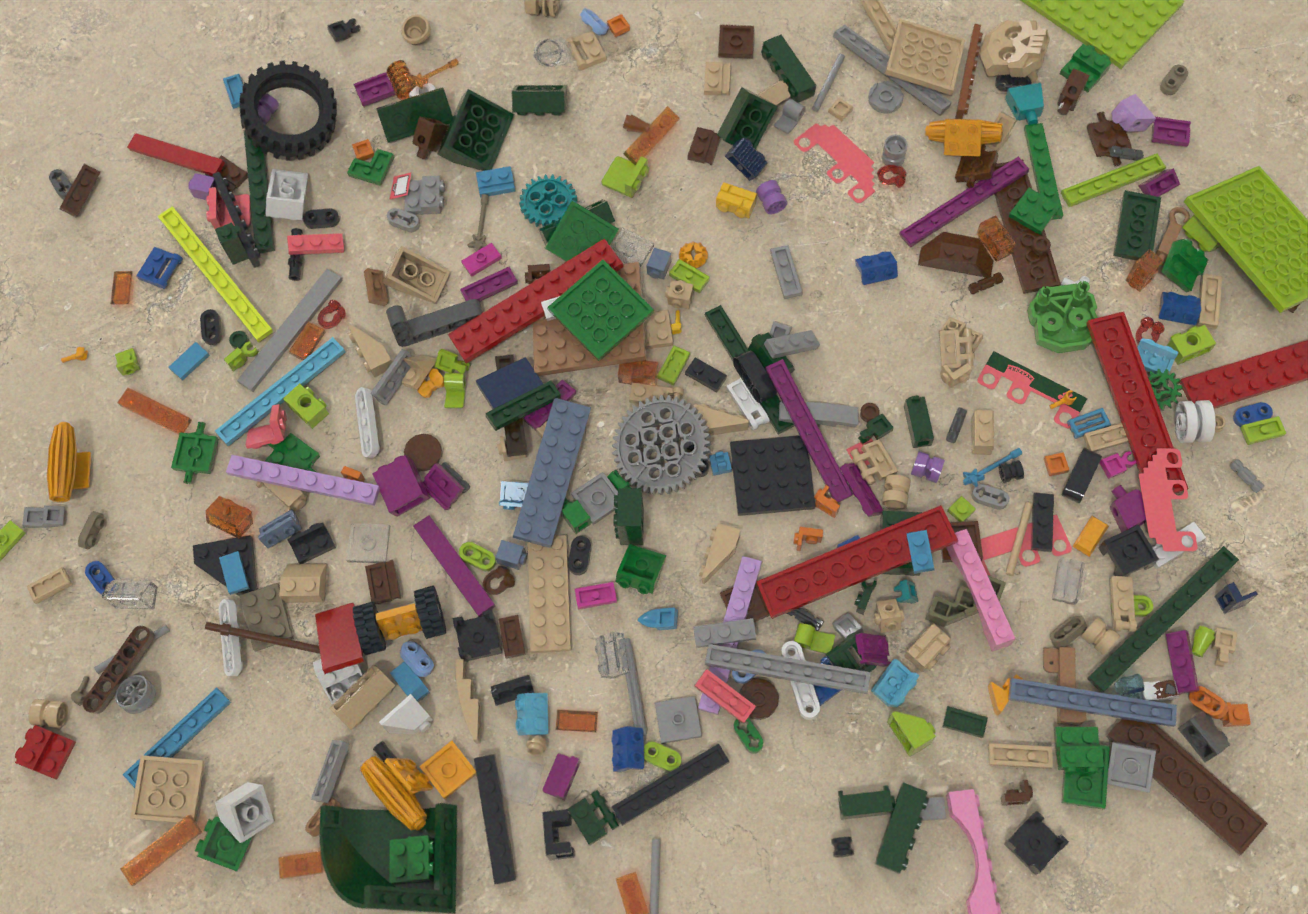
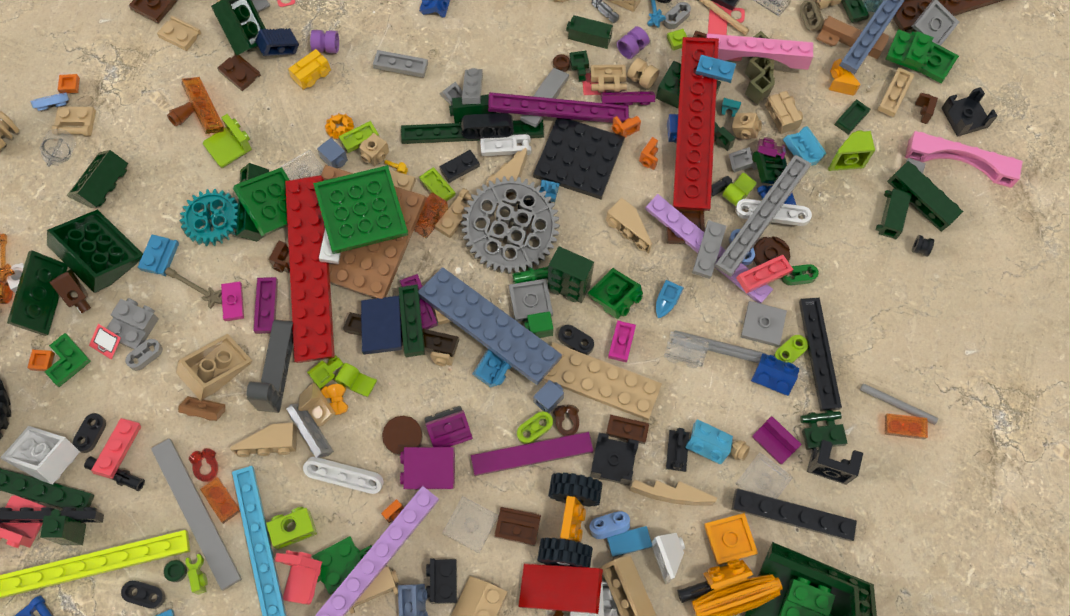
camera: 70 degrees left, 0 degrees up
(576, 721) = (730, 407): clear orange tile -> none

